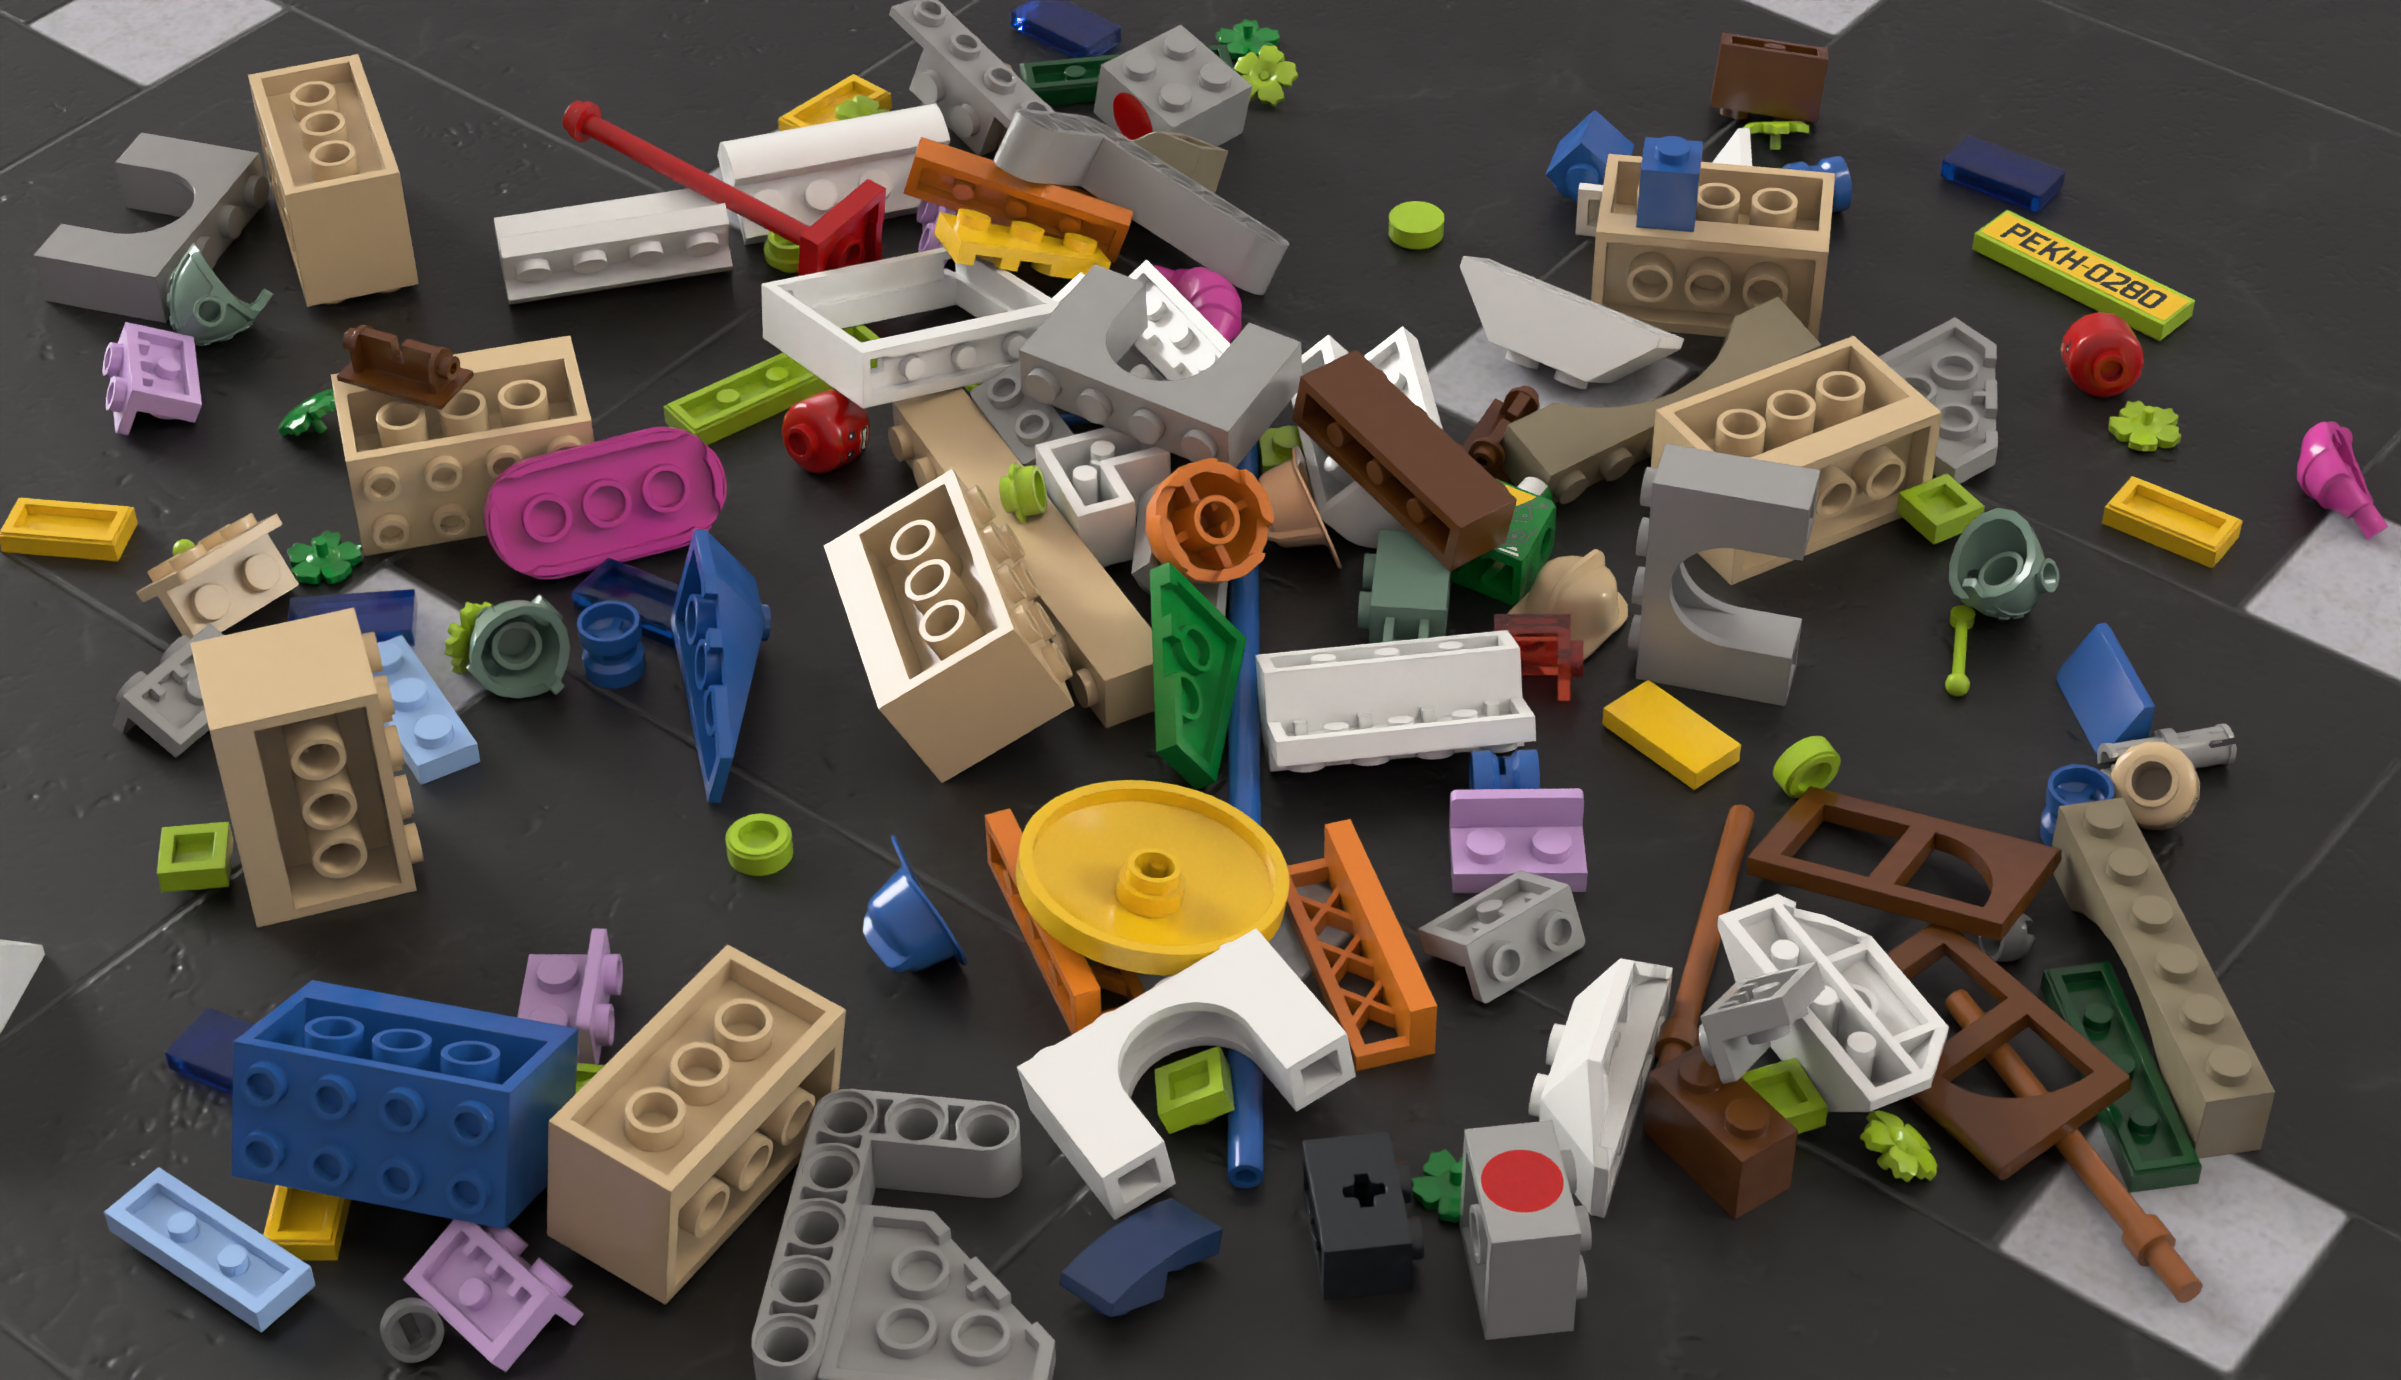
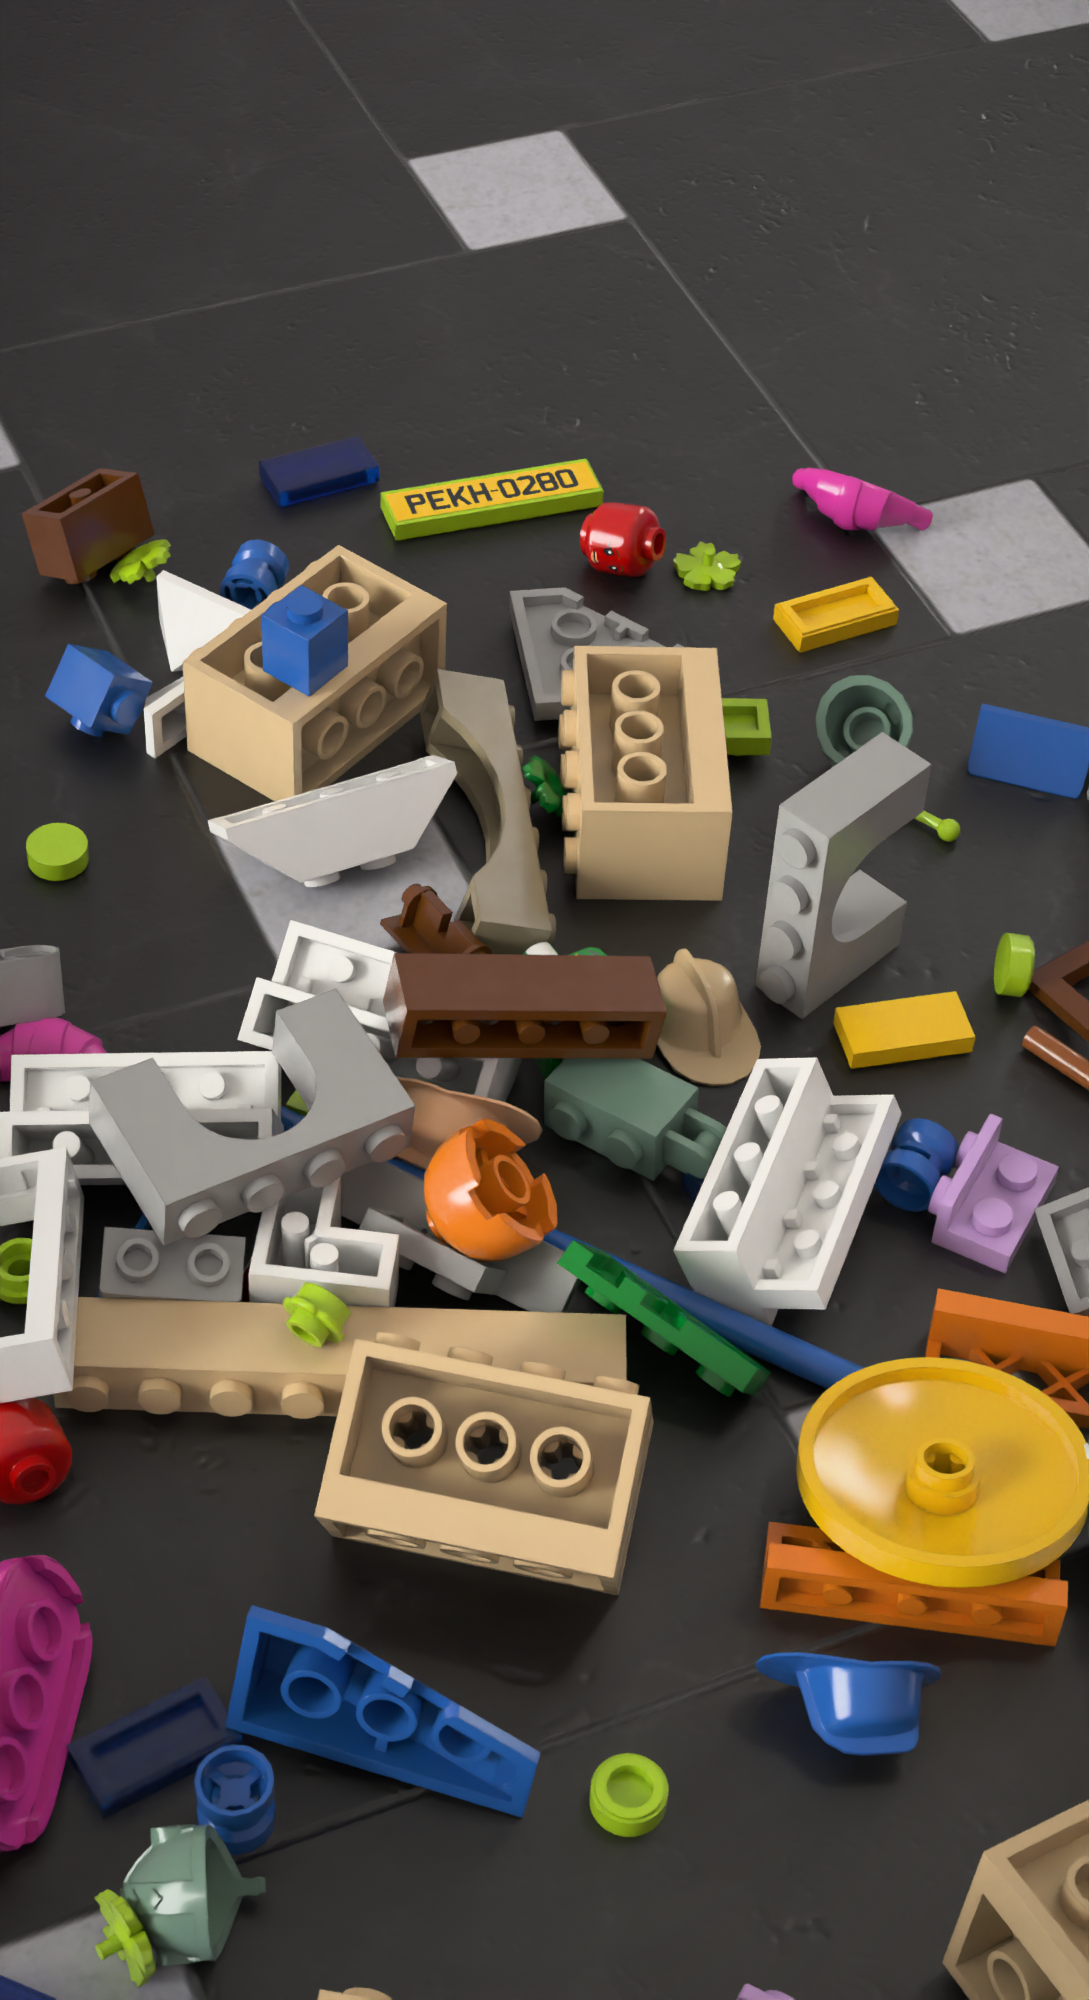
camera: 65 degrees left, 5 degrees up
(1545, 646) = (763, 1039): clear red bracket -> none

